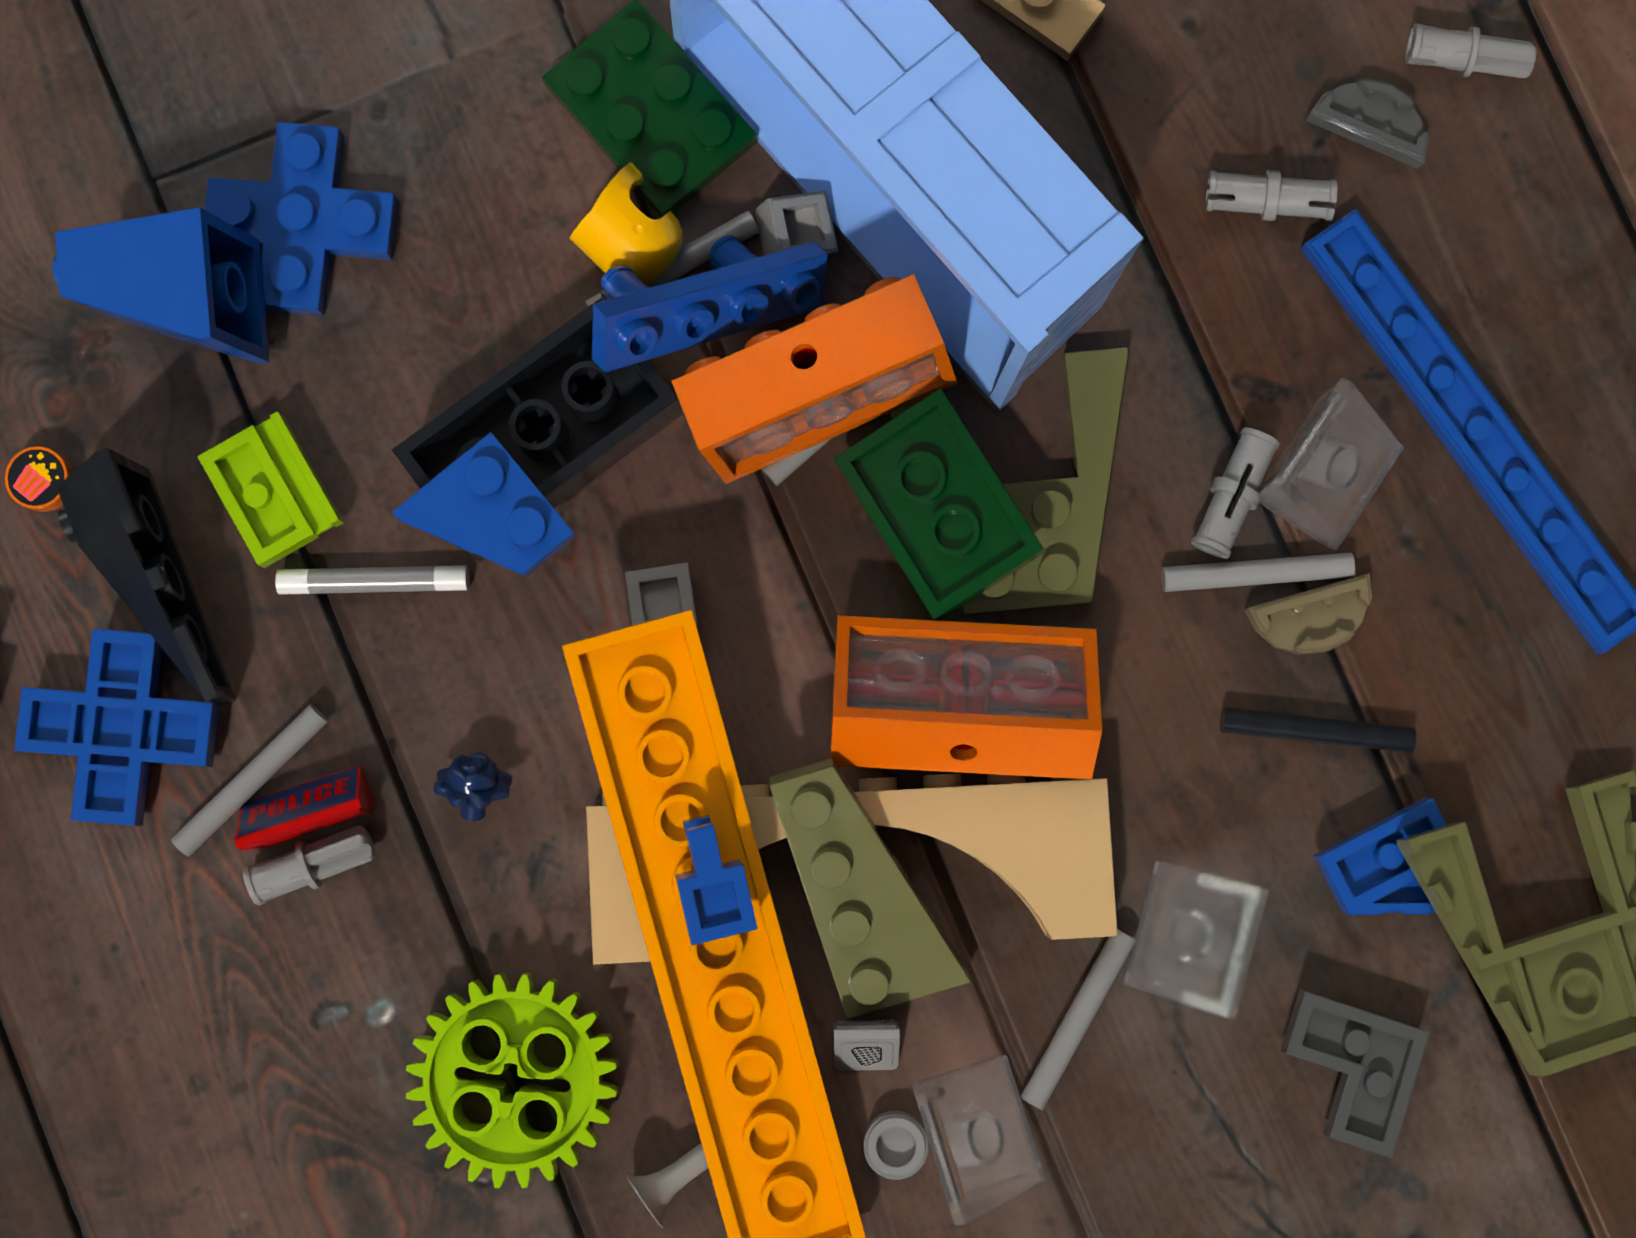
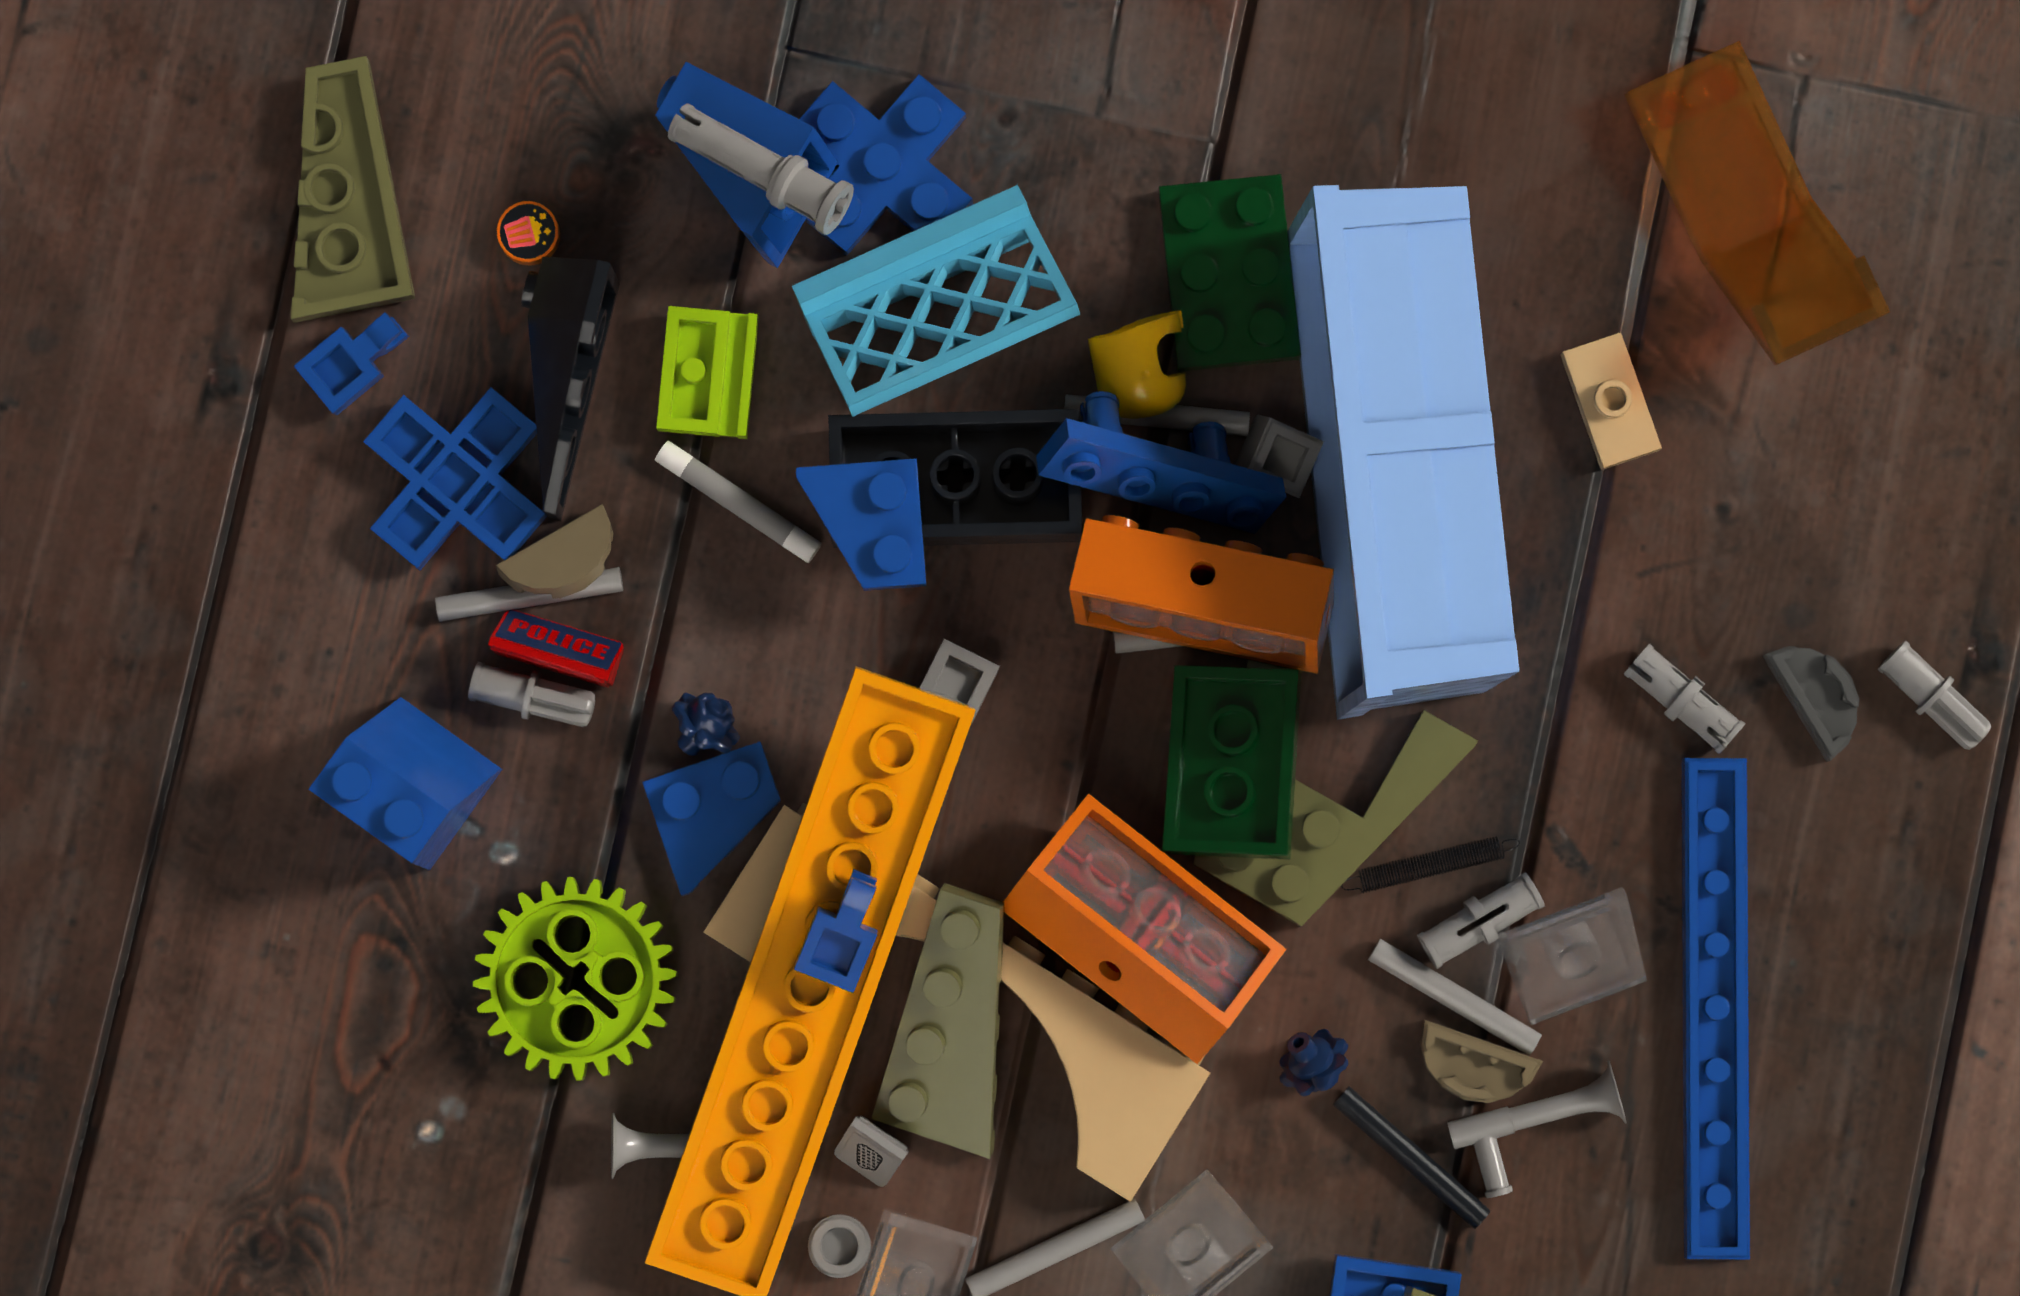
camera: 30 degrees right, 0 degrees up
(200, 267) = (785, 180): none -> light grey pin
(245, 1020) = (406, 781): none -> blue slope
(256, 730) = (562, 560): none -> dark tan tile
(387, 276) = (917, 268): none -> medium azure fence
(529, 853) = (710, 809): none -> blue wing
(1160, 486) = (1446, 870): none -> black piece
(1183, 708) = (1313, 1062): none -> dark blue plant
(1361, 665) = (1486, 1127): none -> light grey piece

